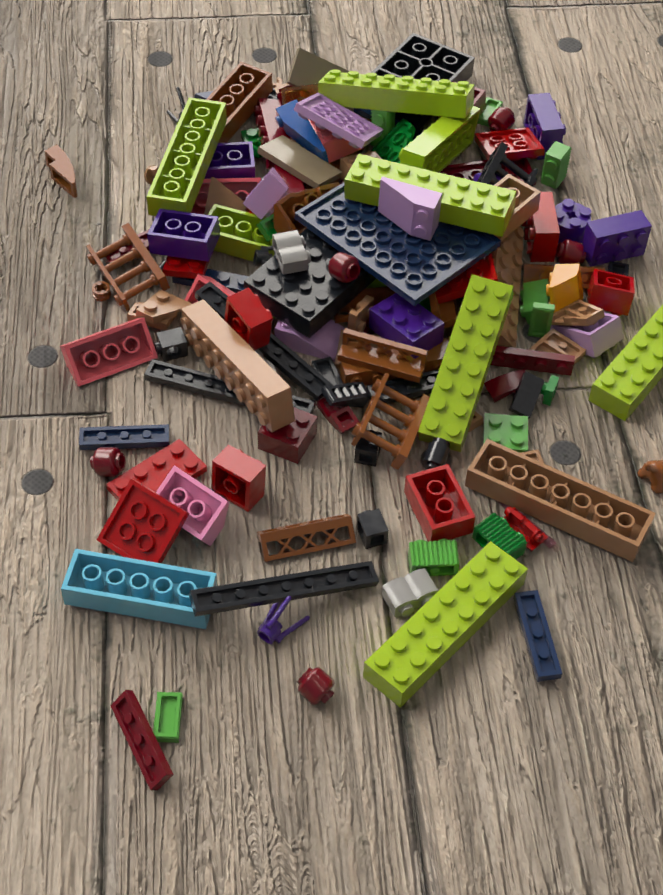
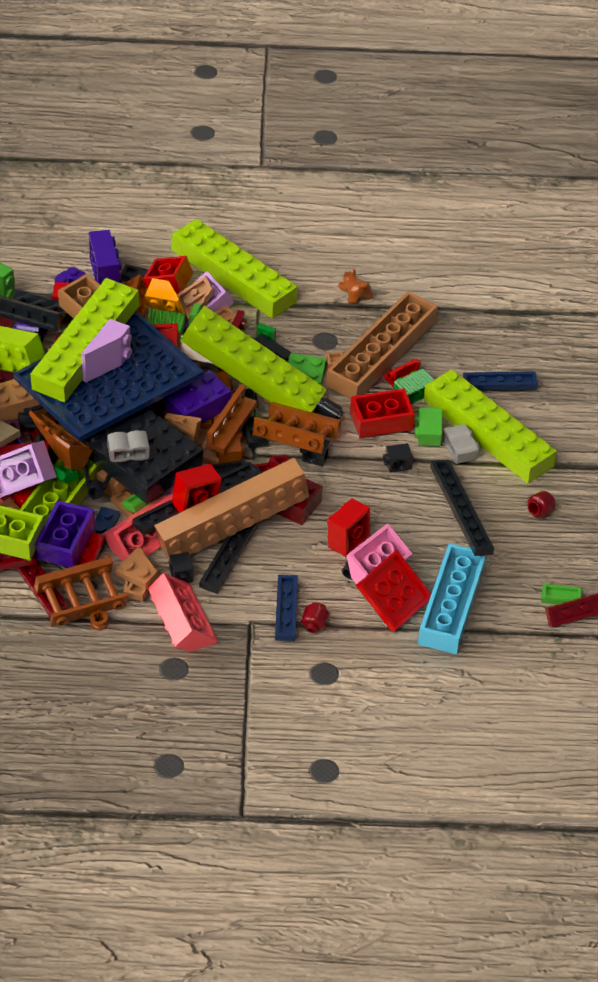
camera: 85 degrees left, 5 degrees down
(157, 467) = (331, 588): plate -> none
(271, 628) = (490, 526): dark purple plant -> none
(301, 529) = (400, 498): dark orange fence -> none
(343, 267) = (154, 412): dark red head -> none
(351, 394) = (259, 455): black slope -> none

